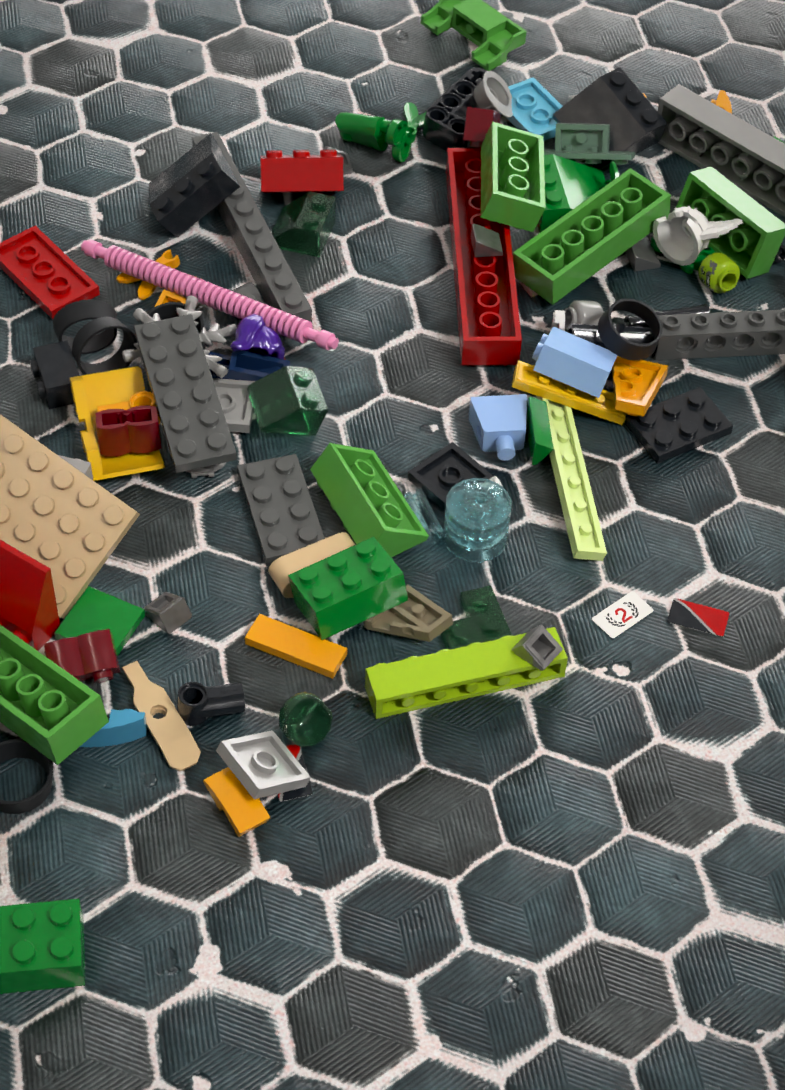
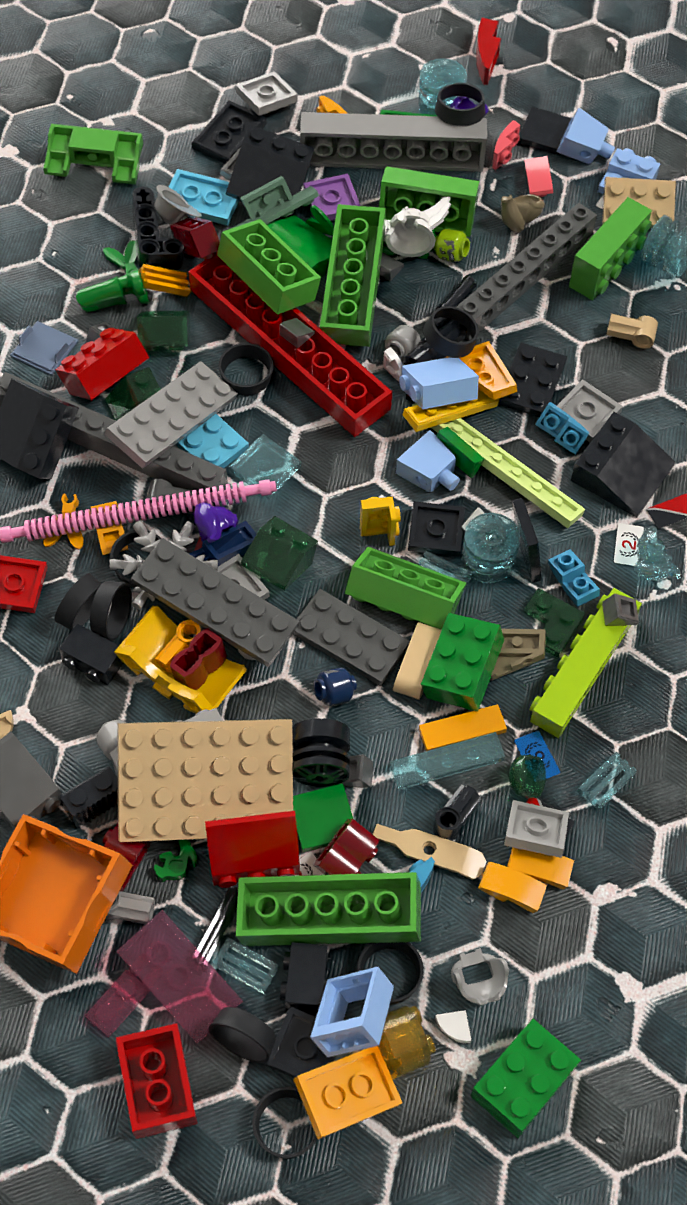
camera: 40 degrees left, 10 degrees up
(22, 863) = (454, 1026): none -> white tile
(62, 829) = (483, 991): none -> light grey helmet
(145, 565) = (320, 752): none -> black wheel
(192, 795) = (512, 885): none -> light orange slope
(221, 532) = (334, 686): none -> dark blue head
(253, 659) = (447, 761): none -> clear light blue tile
(277, 136) = (43, 347): none -> sand blue piece
(311, 239) = (170, 414): none -> light grey plate
(334, 293) = (214, 442): none -> medium azure plate
(344, 712) = (535, 745): none -> clear blue sticker
(360, 336) = (263, 462): none -> clear light blue tile
(377, 777) = (622, 765): none -> clear light blue tile
(386, 184) = (164, 329): none -> clear green slope
(401, 430) = (380, 517): none -> yellow bracket
(426, 148) = (164, 280): none -> light orange tile
(427, 238) = (246, 350): none -> black tyre
(509, 529) = (528, 541): none -> black tile
(535, 600) = (572, 577): none -> dark azure slope
(630, 633) = (652, 558): none -> clear light blue hair
(633, 66) = (226, 131): none -> black tile
(656, 169) = (333, 192): none -> medium lavender plate
(660, 474) = (563, 427): none -> dark azure slope
(678, 66) = (266, 93): none -> light grey plate
(686, 543) = (622, 465): none -> black slope
(701, 480) = (589, 407): none -> light grey plate

